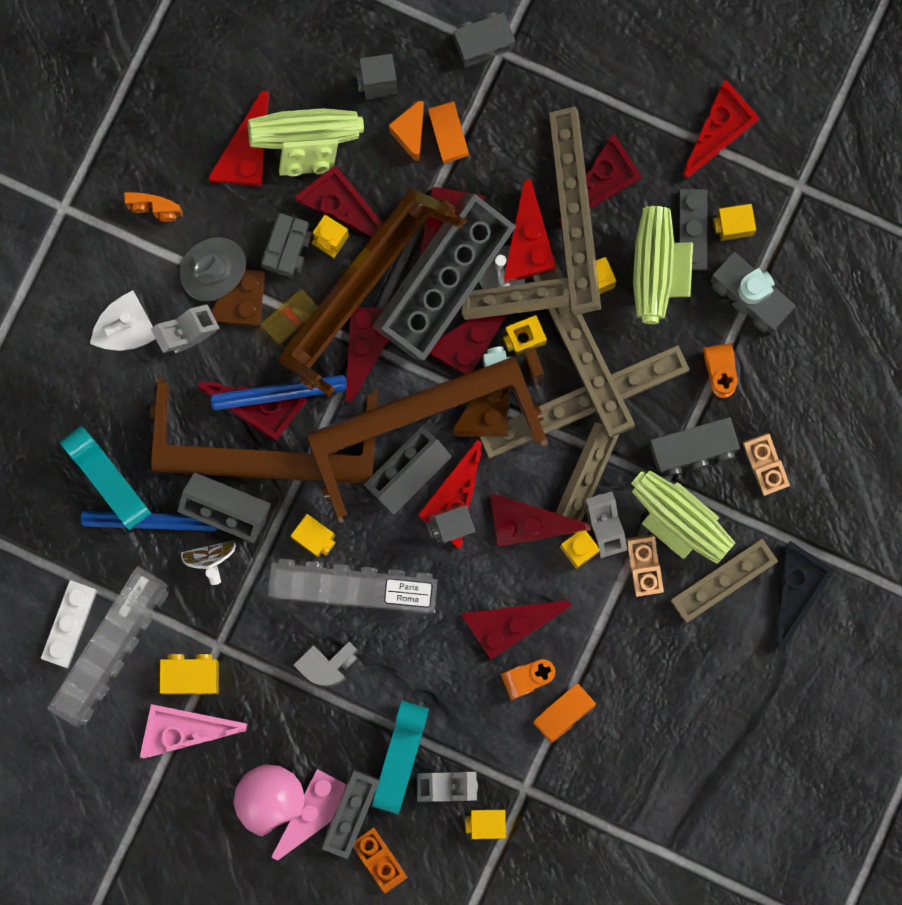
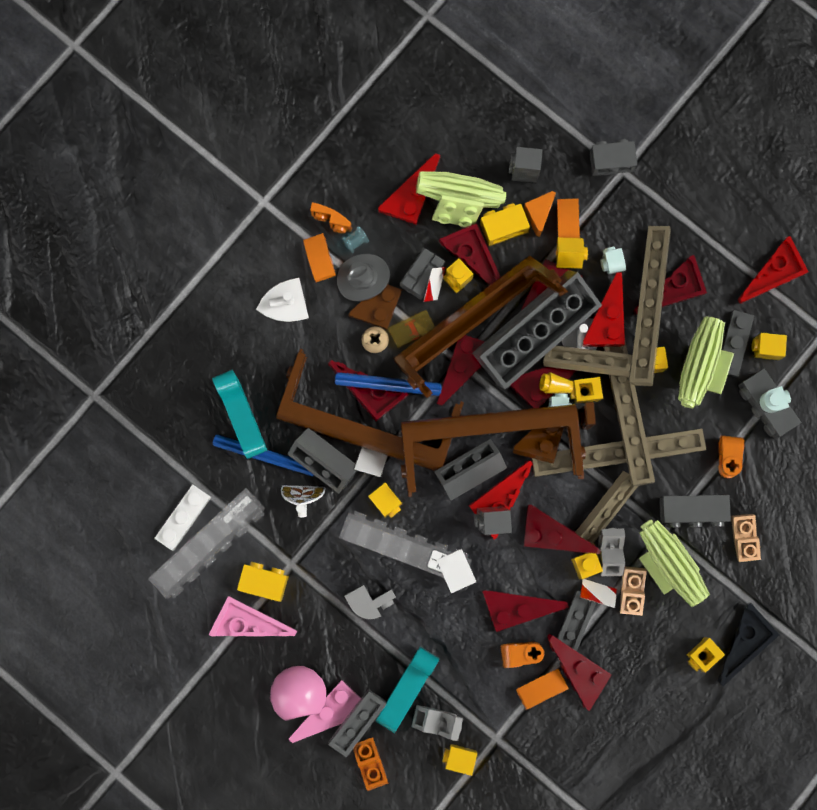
camera: 15 degrees right, 0 degrees up
(152, 259) = (319, 257): none -> orange slope
(186, 330) = (330, 318): light grey brick -> none
(190, 225) = (355, 239): none -> clear light blue bush
(245, 333) = (383, 339): none -> tan piece
(283, 493) = (371, 462): none -> white sticker
(303, 254) = (434, 284): none -> white sticker
(370, 157) = (504, 224): none -> yellow brick
(422, 597) = (456, 571): none -> white sticker
(461, 171) = (570, 253): none -> yellow brick
(484, 338) = (555, 384): none -> yellow cone
(516, 167) = (613, 260): none -> light aqua plate
(584, 626) = (576, 621): none -> dark grey plate
(603, 579) = (598, 593): none -> white sticker
(612, 682) = (584, 675): none -> dark red wing
(724, 581) = (691, 619): dark tan plate -> none
(760, 615) = (712, 653): none -> yellow brick

